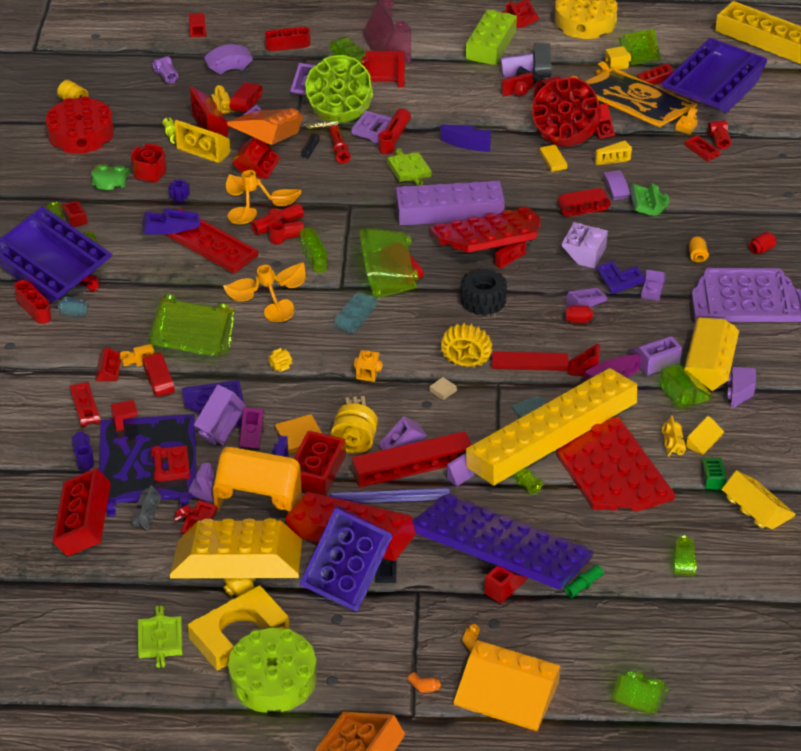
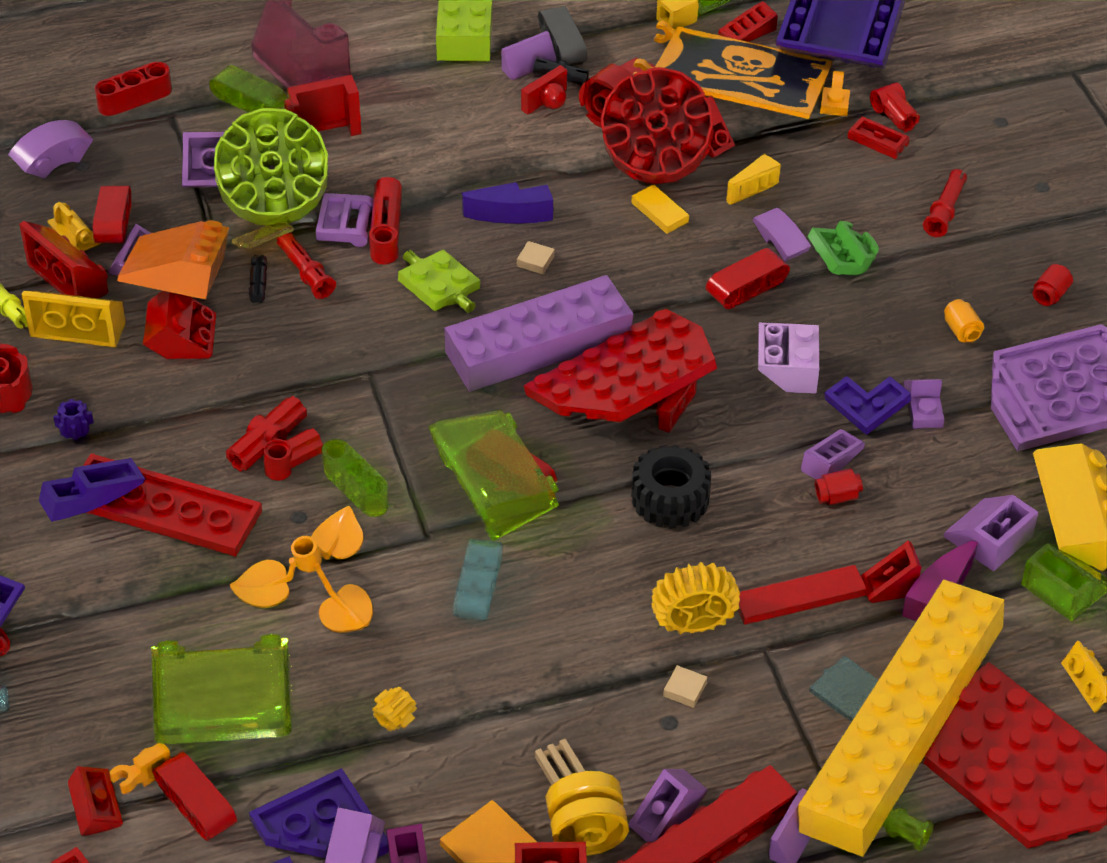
camera: 20 degrees left, 5 degrees up
(248, 182) = (170, 382): light orange plant -> none
(368, 365) = (548, 679): light orange brick -> none
(469, 167) = (535, 257): none -> tan tile
(718, 191) = (943, 209): none -> red pin

